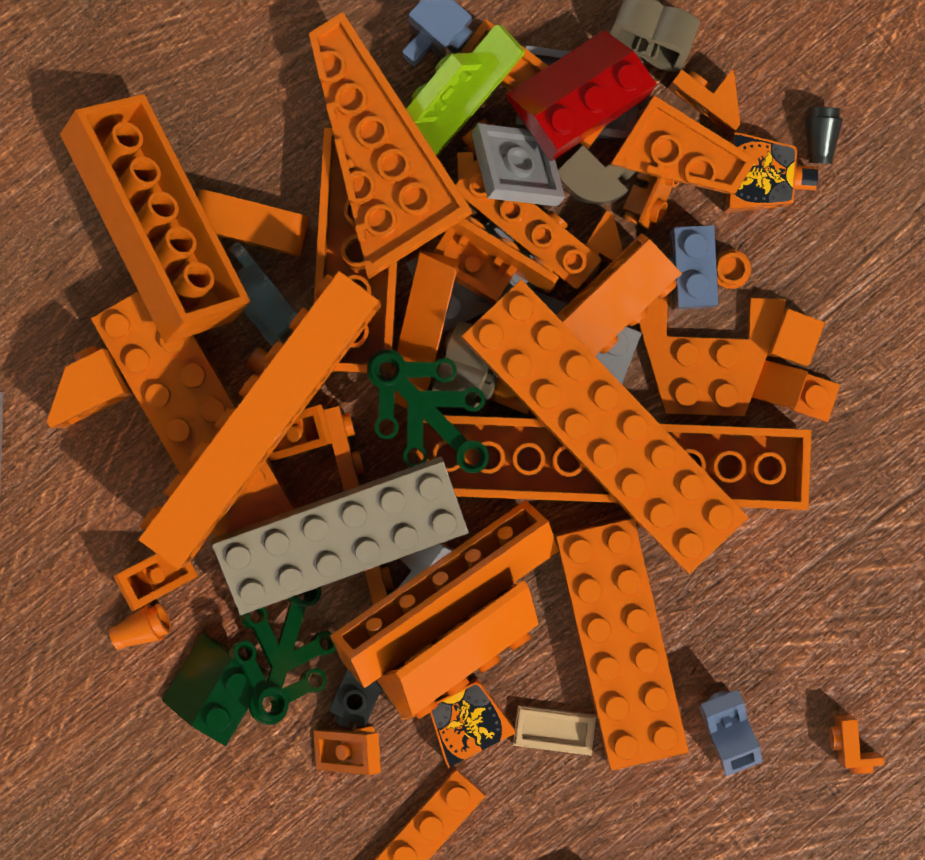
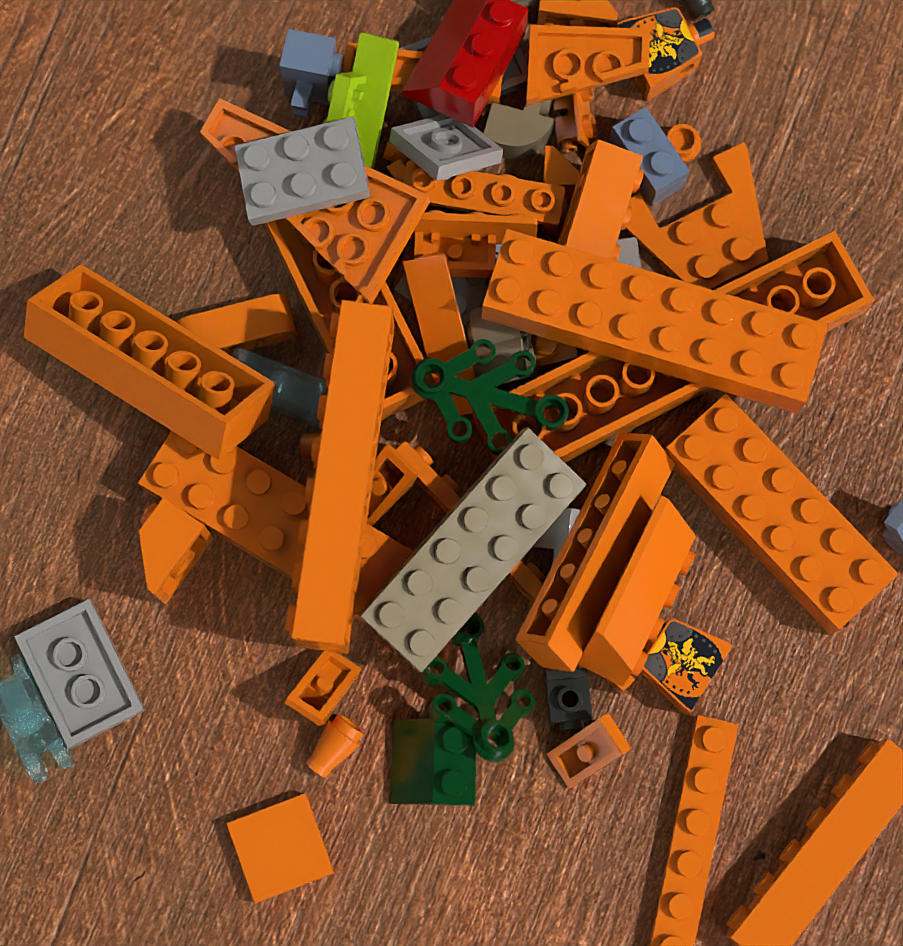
camera: 30 degrees left, 10 degrees down
(51, 686) = (280, 848): none -> orange tile
(375, 125) = (302, 171): none -> light grey plate
(554, 730) = (765, 630): tan tile -> none
(796, 337) = (772, 165): orange panel -> none
(796, 391) = (799, 214): orange slope -> none

